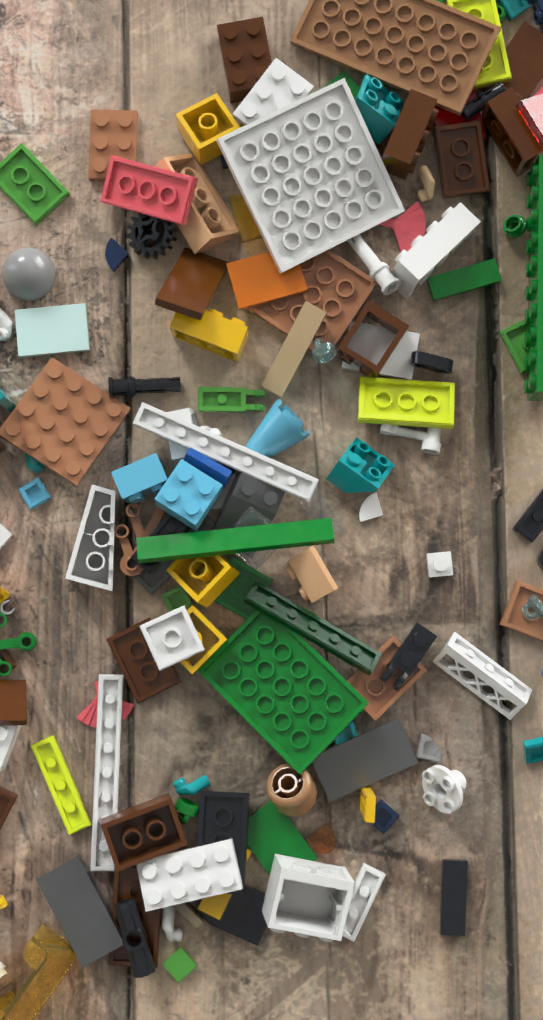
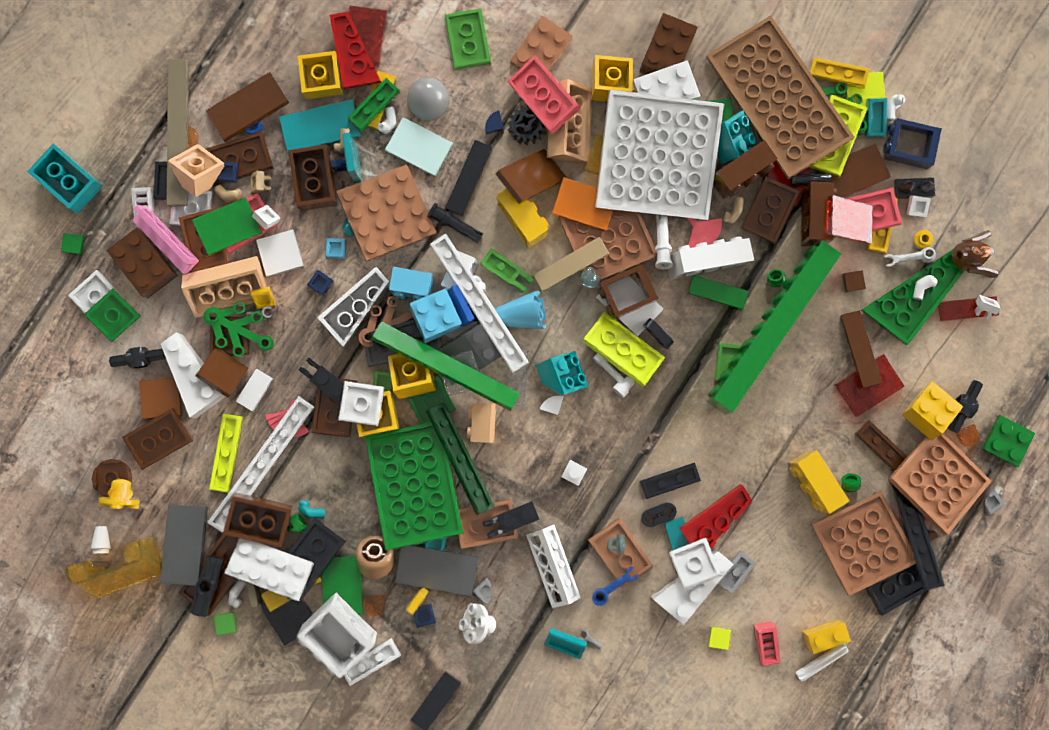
camera: 30 degrees right, 0 degrees up
(42, 540) = (320, 282): none -> dark blue tile
(47, 698) = (254, 390): none -> white tile
(117, 640) = (325, 381): none -> black hinge
(126, 329) = (468, 177): none -> black tile

